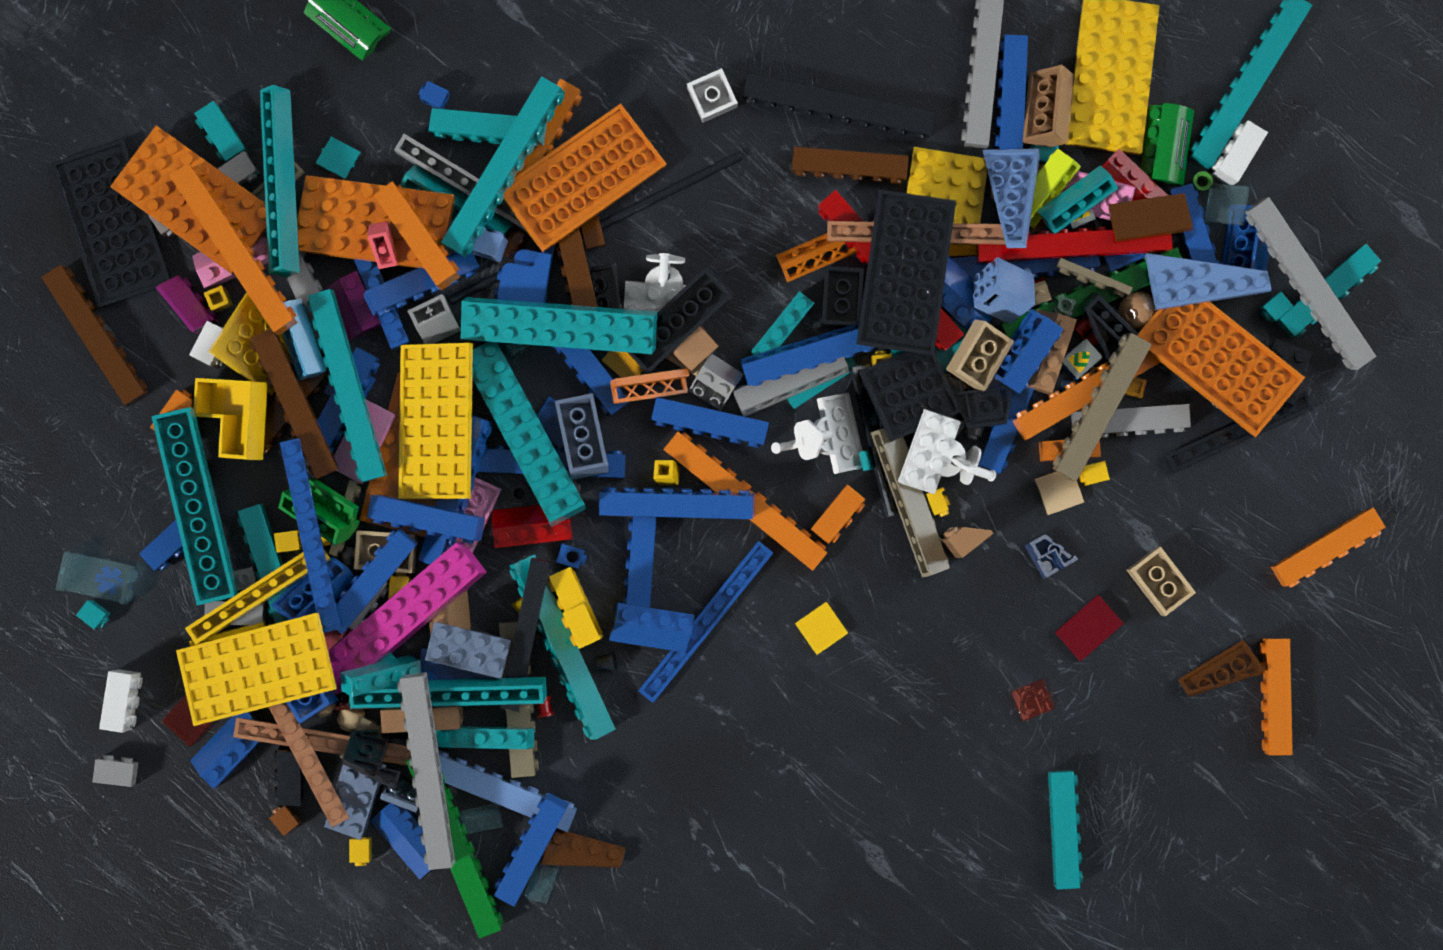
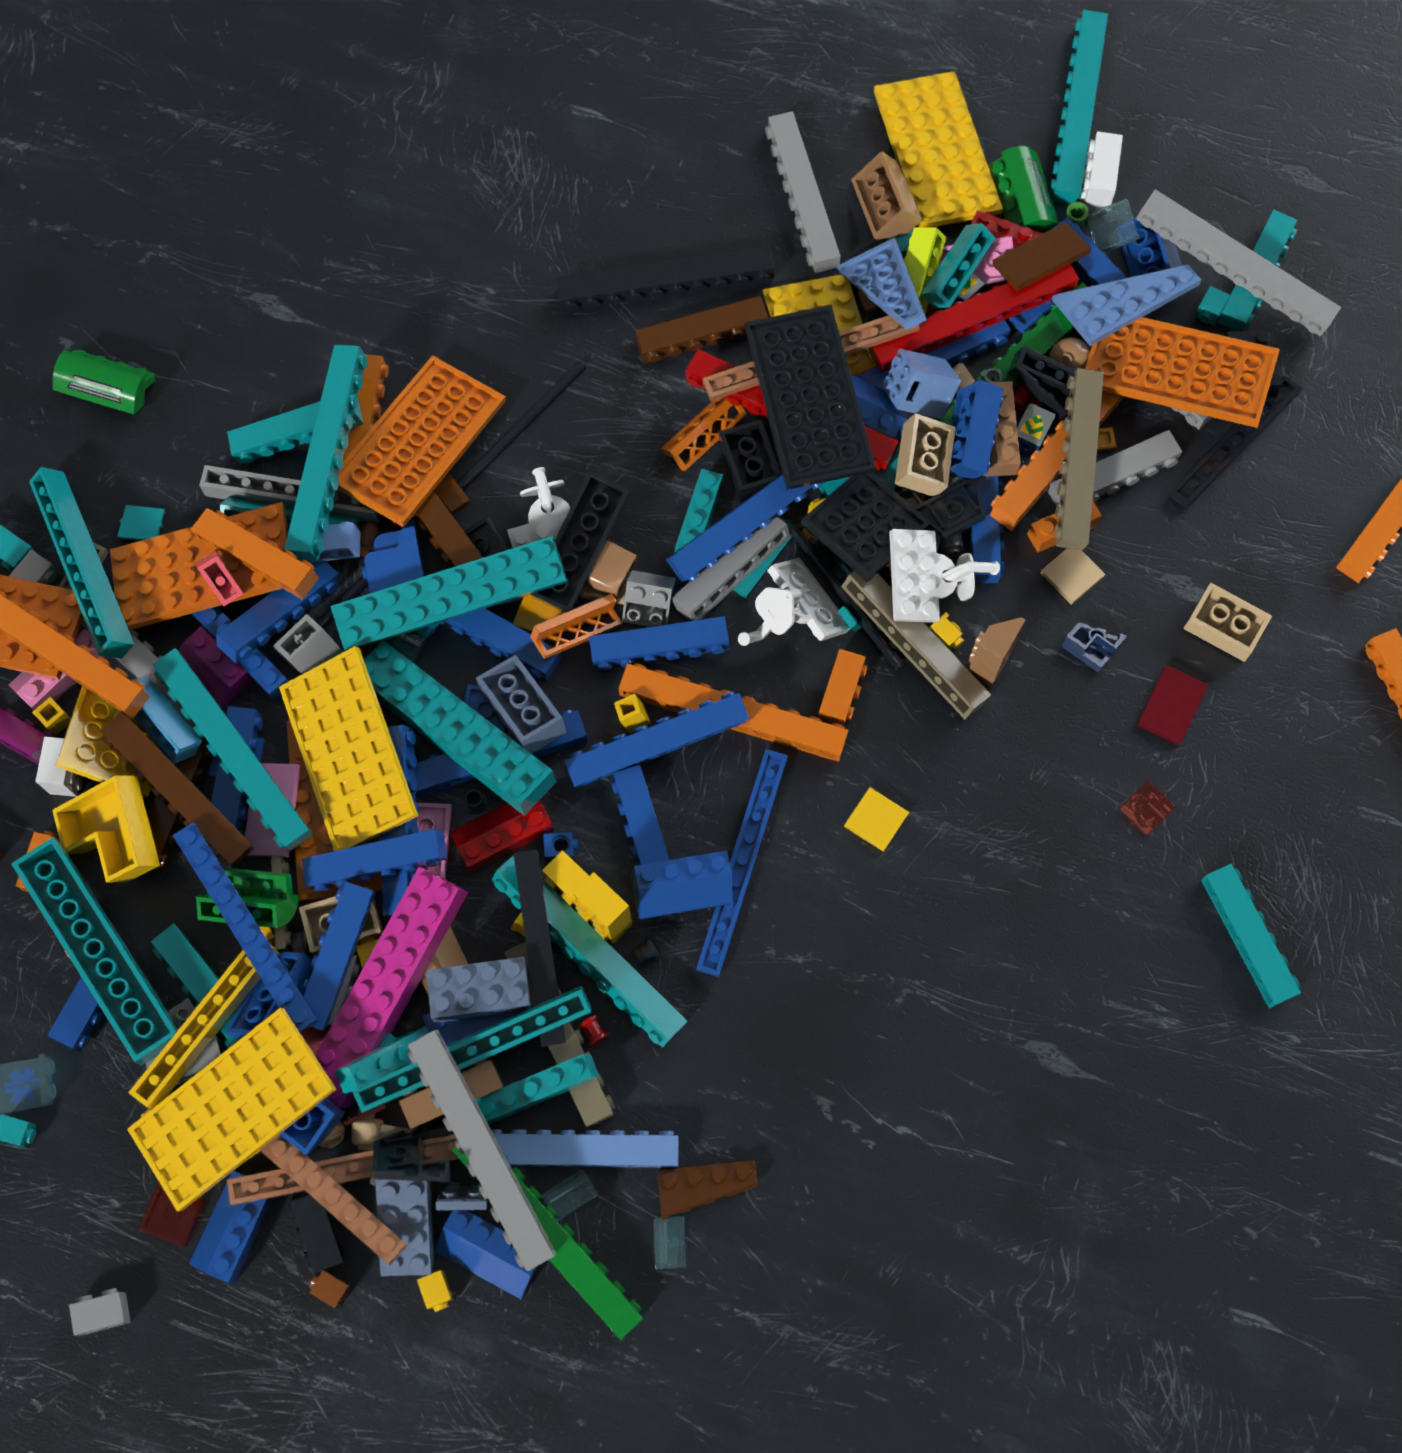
camera: 20 degrees left, 15 degrees down
(120, 700) = (78, 1220): white brick -> none
(288, 541) = (222, 954): yellow brick -> none
(434, 95) = (224, 420): blue brick -> none
(533, 845) = (642, 1203): blue brick -> none
(712, 95) = (527, 313): white brick -> none
(1012, 91) = (841, 200): blue brick -> none
(1085, 275) = (1015, 339): dark tan plate -> none
(1094, 473) = (1102, 540): yellow brick -> none
(1226, 668) = (1341, 689): reddish brown wing -> none

